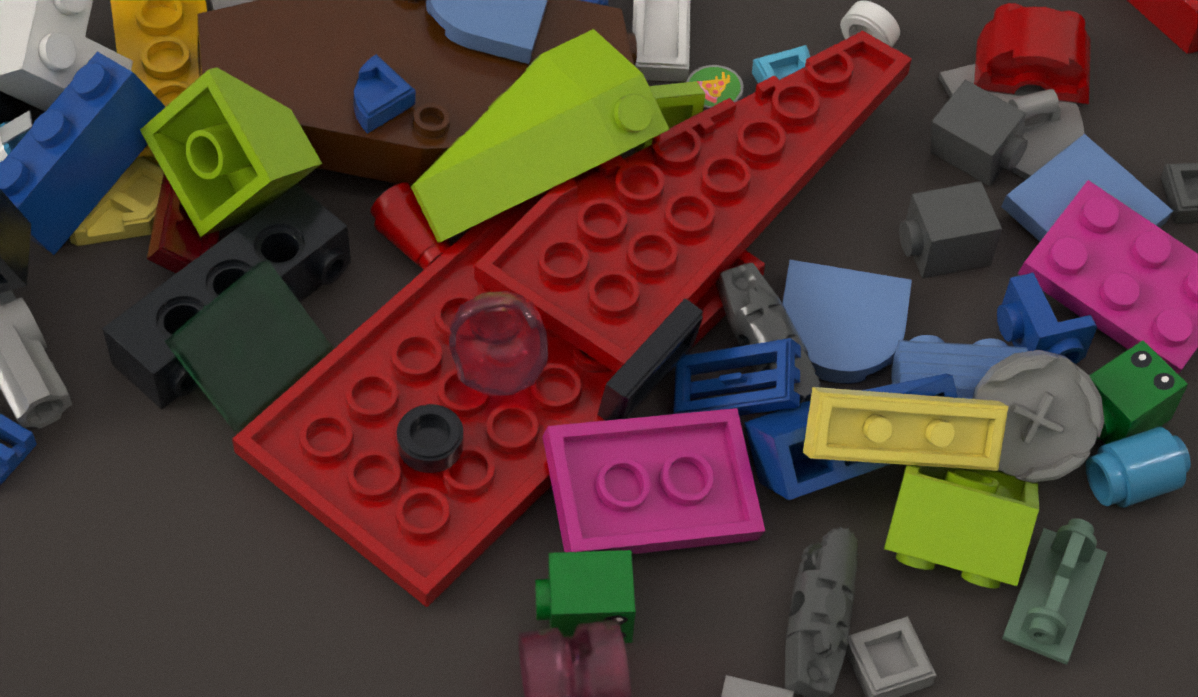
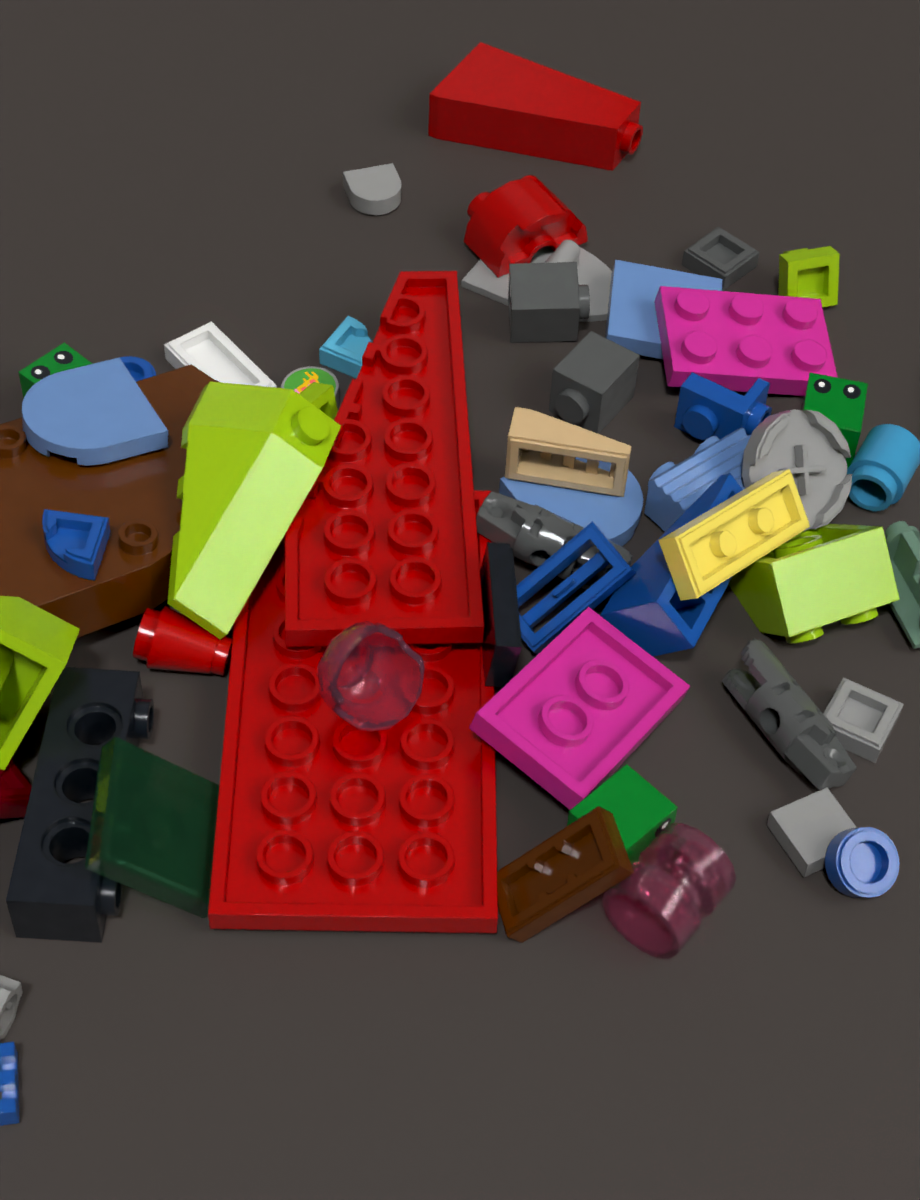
camera: 40 degrees left, 5 degrees down
(430, 438) = (379, 793): black tile -> none
(500, 596) = (561, 874): none -> reddish brown plate
(844, 270) = (545, 453): none -> tan slope
(873, 20) = (380, 271): white tile -> none

